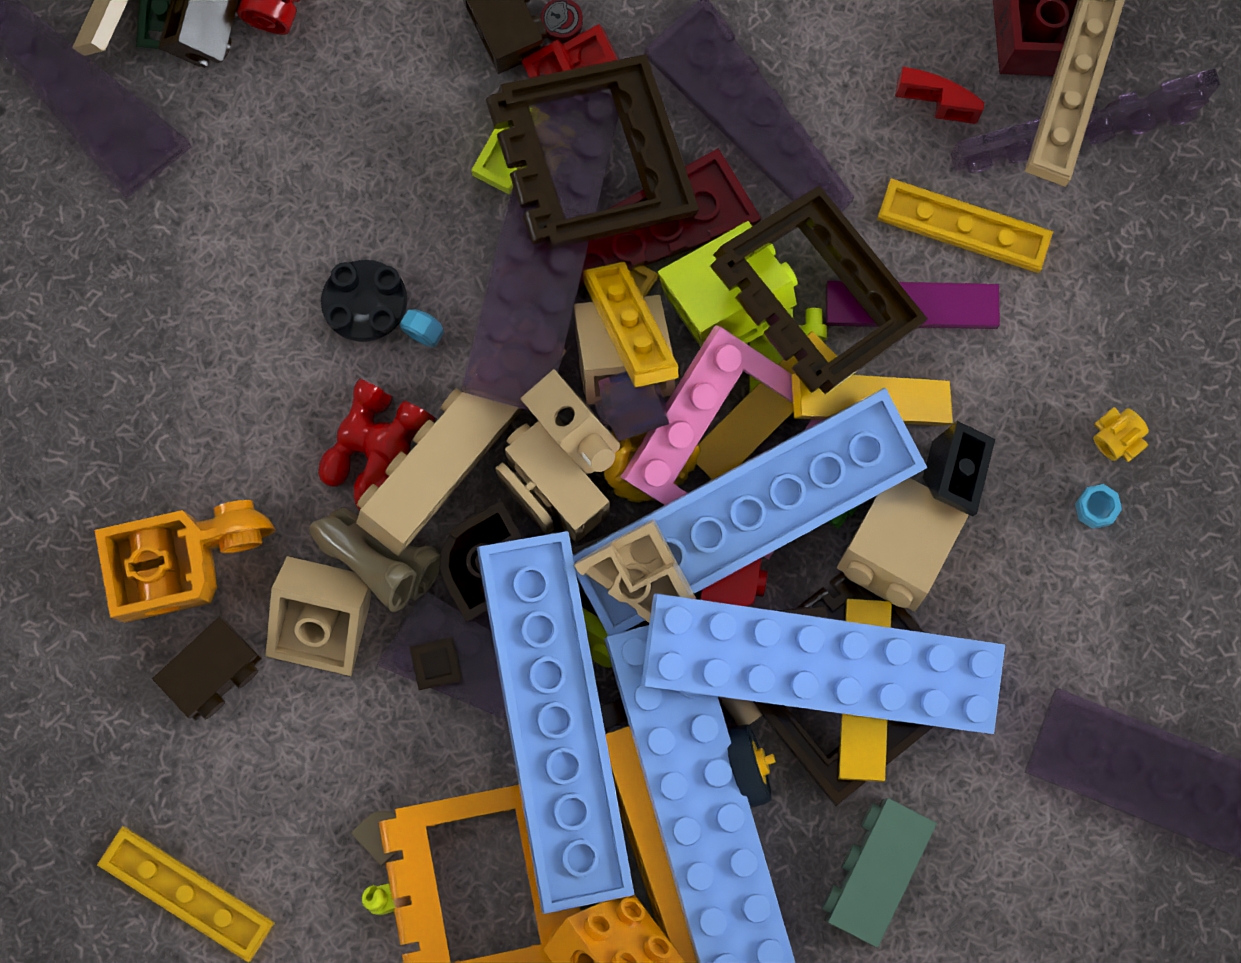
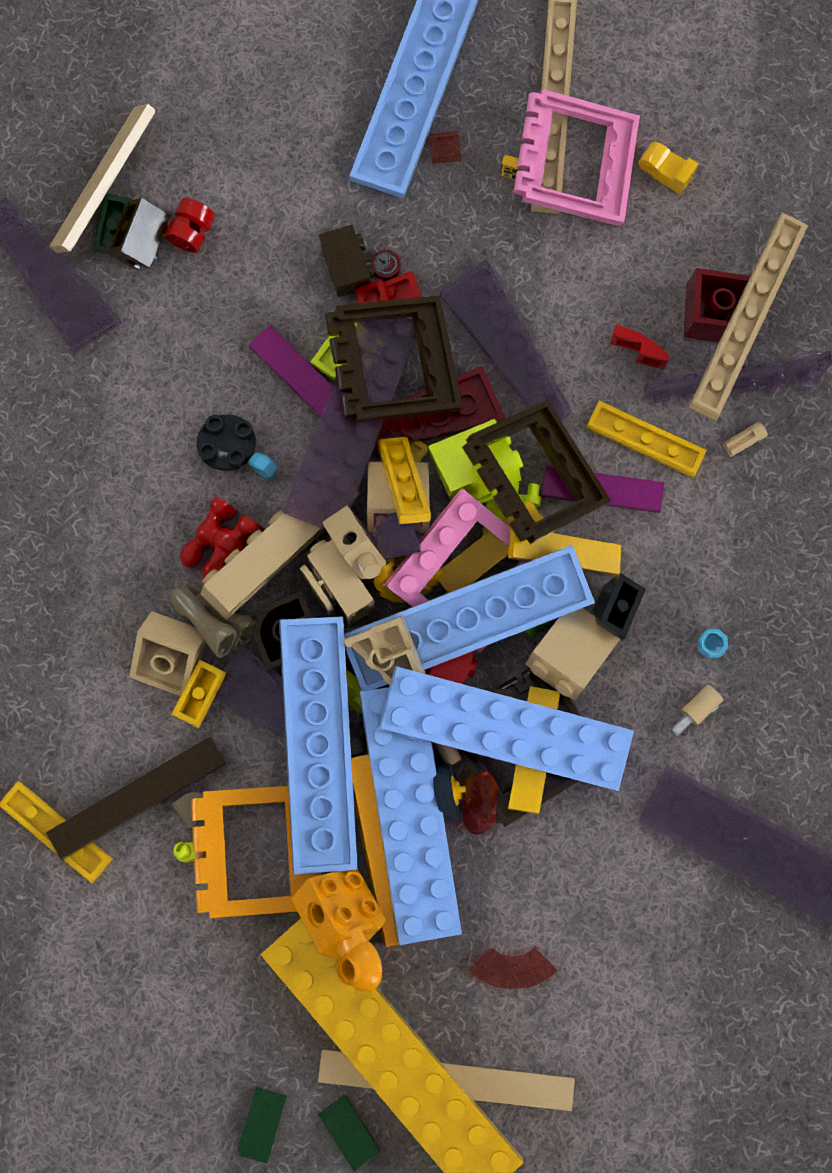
camera: 10 degrees right, 0 degrees up
(168, 558) = (71, 603): light orange brick -> none
(208, 670) = (88, 682): dark brown brick -> none
(296, 831) = (135, 798): none -> dark brown tile
(371, 667) = (199, 693): none -> yellow slope
(435, 662) = (243, 695): dark brown tile -> none
(446, 183) = (292, 368): none -> magenta tile
(798, 778) = (480, 805): none -> clear red plate
(878, 871) = (527, 874): sand green brick -> none
(1090, 602) = (698, 709): none -> tan piece
(1105, 209) = (745, 439): none -> tan piece
(1121, 434) = (734, 596): yellow gear -> none

